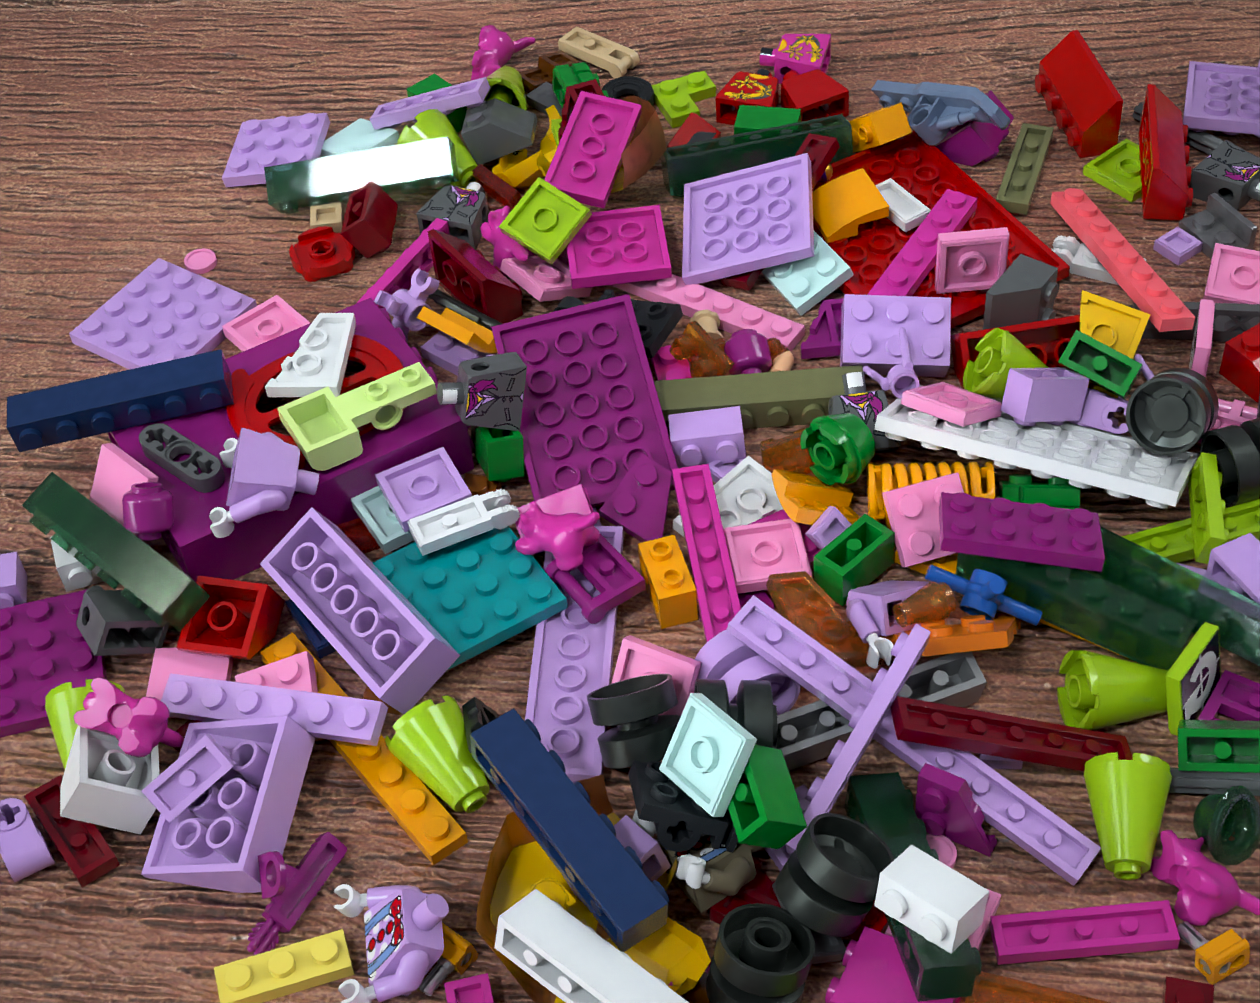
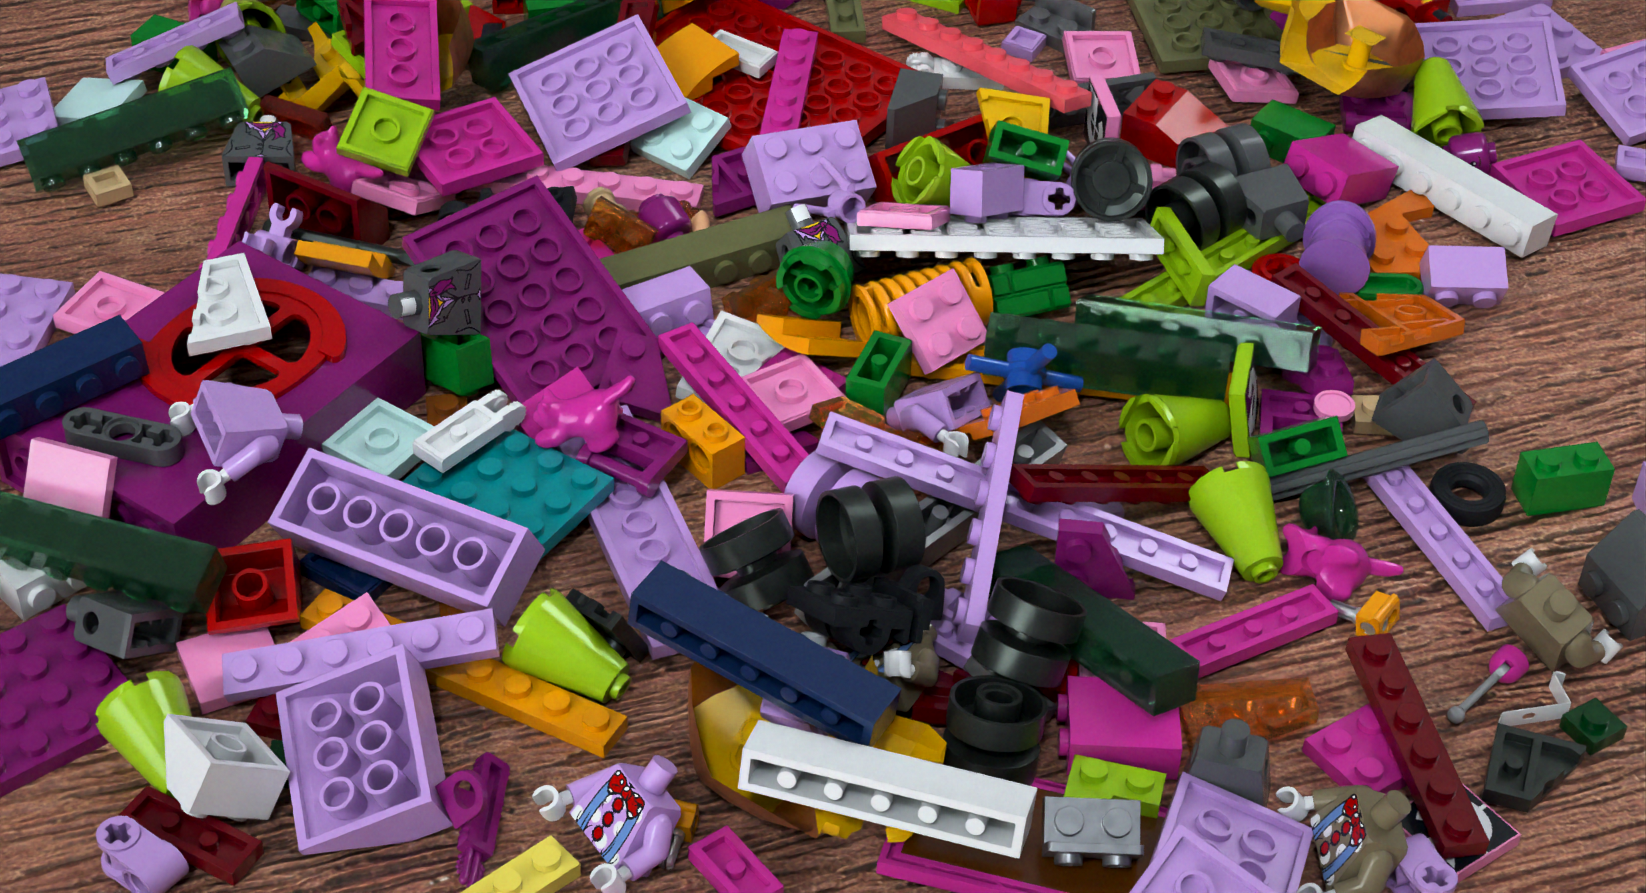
camera: 30 degrees left, 5 degrees down
(134, 722) = (224, 697): dark pink animal -> none
(148, 510) = (123, 492): magenta head -> none
(188, 777) = (319, 734): lavender plate -> none
(314, 265) = (139, 224): red plate -> none
(328, 425) = (295, 361): yellowish green plate -> none
(369, 219) = (167, 174): dark red brick -> none
(422, 485) = (403, 410): lavender plate -> none
(707, 754) = (875, 549): light aqua tile -> none
(766, 802) = (937, 575): green brick -> none
(827, 527) = (841, 355): lavender tile -> none
(928, 604) = (982, 390): clear orange cone -> none
(931, 898) = (1133, 619): white brick -> none
(970, 259) = (851, 85): bright pink tile -> none
(1020, 531) = (1037, 305): magenta plate -> none

